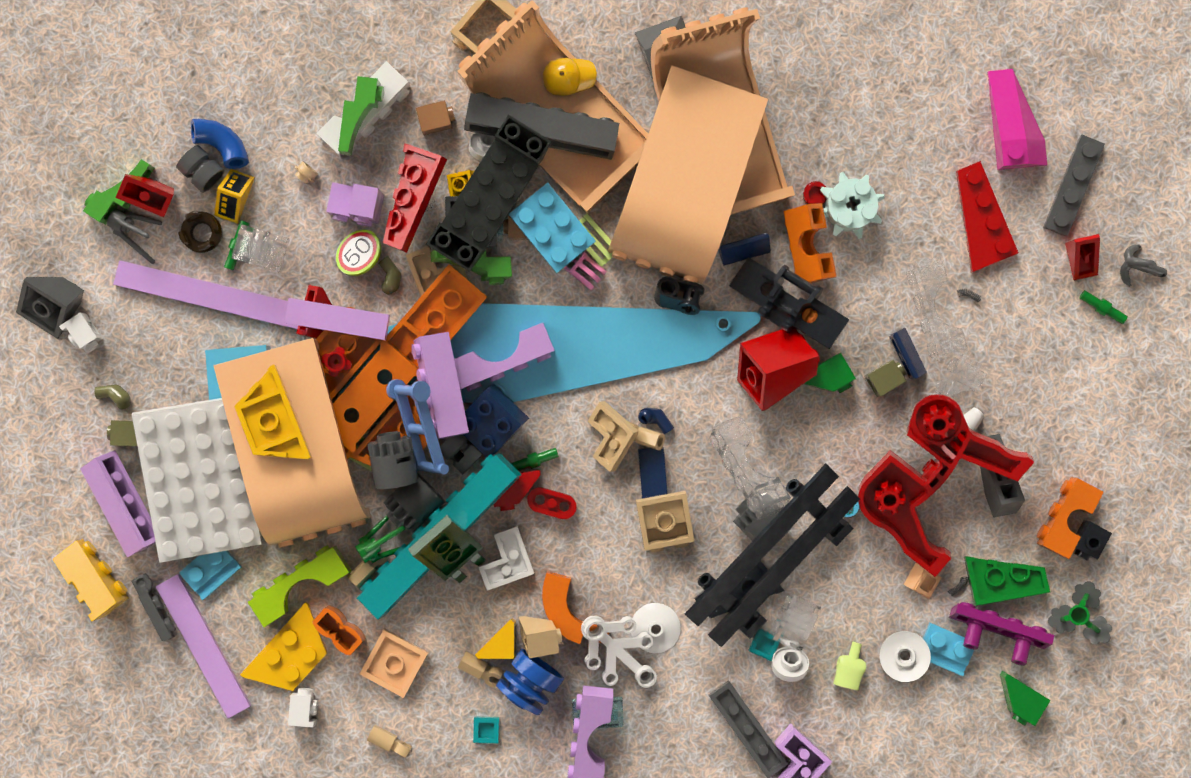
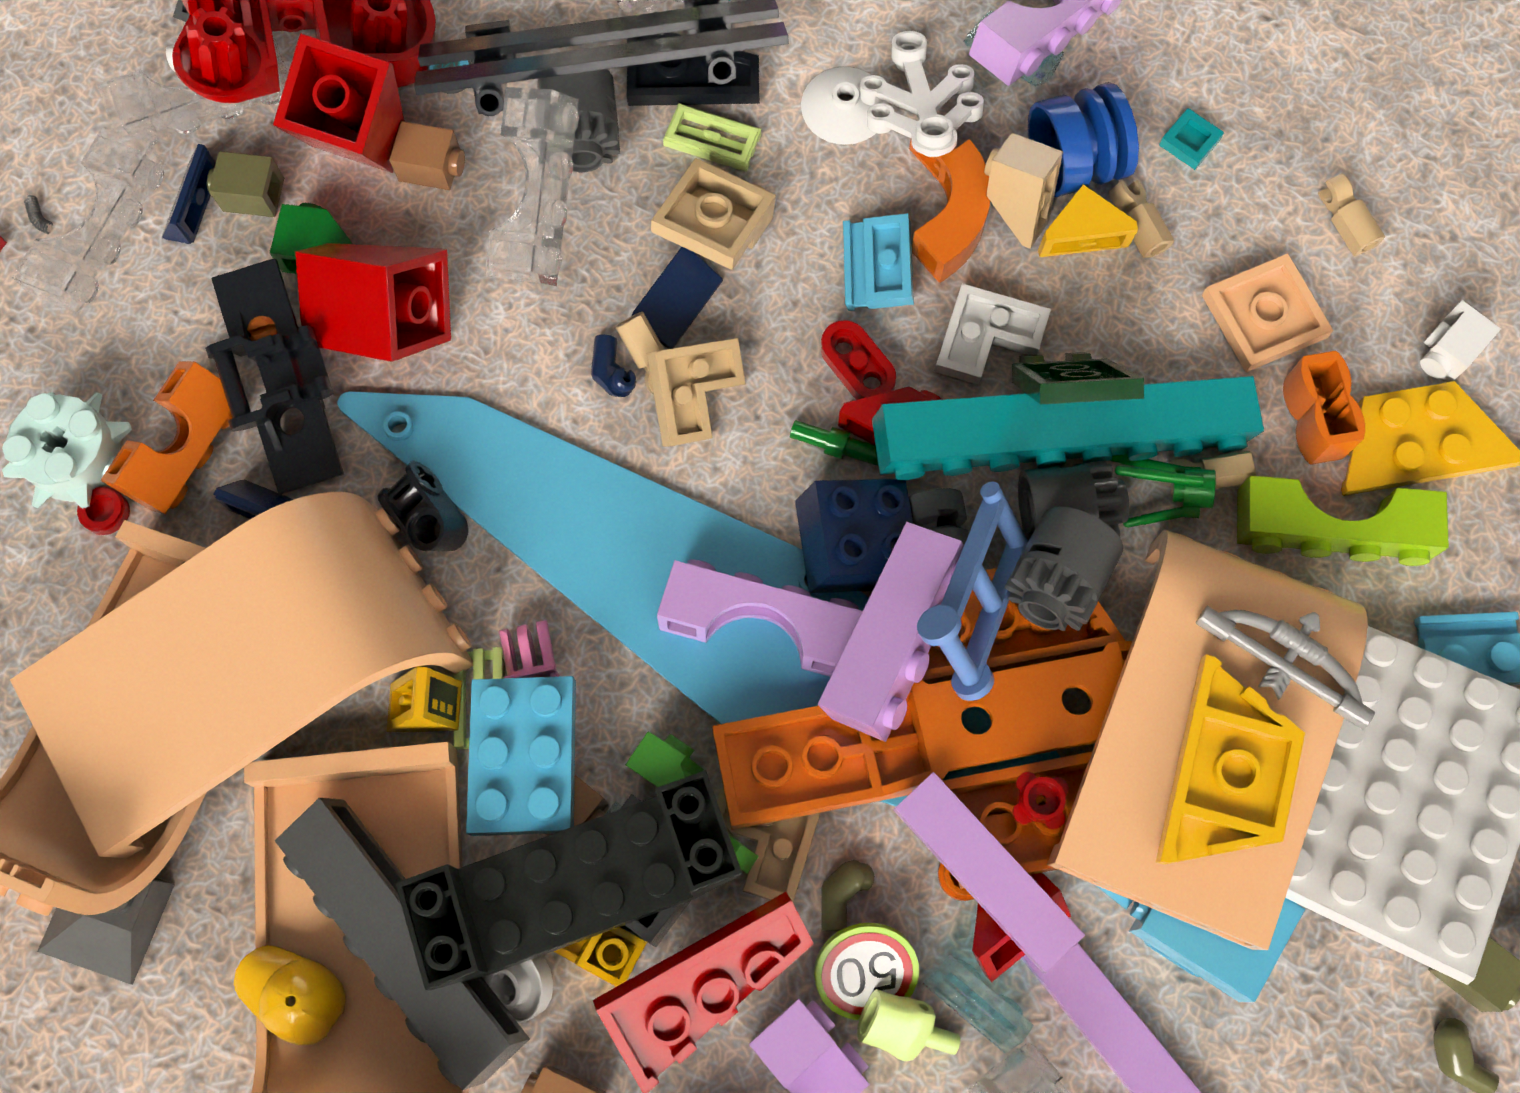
camera: 140 degrees left, 15 degrees down
(278, 492) = (1282, 669): none -> light grey piece
(299, 273) = (989, 1013): none -> clear light blue plate
(330, 243) = (903, 1027): none -> yellowish green piece
(579, 557) = (878, 262): none -> medium azure plate
(607, 218) = (424, 702): none -> yellow slope
(681, 571) = (707, 151): none -> yellowish green tile
(817, 453) = (427, 156): none -> medium nougat brick
(859, 434) = (341, 102): none -> red slope

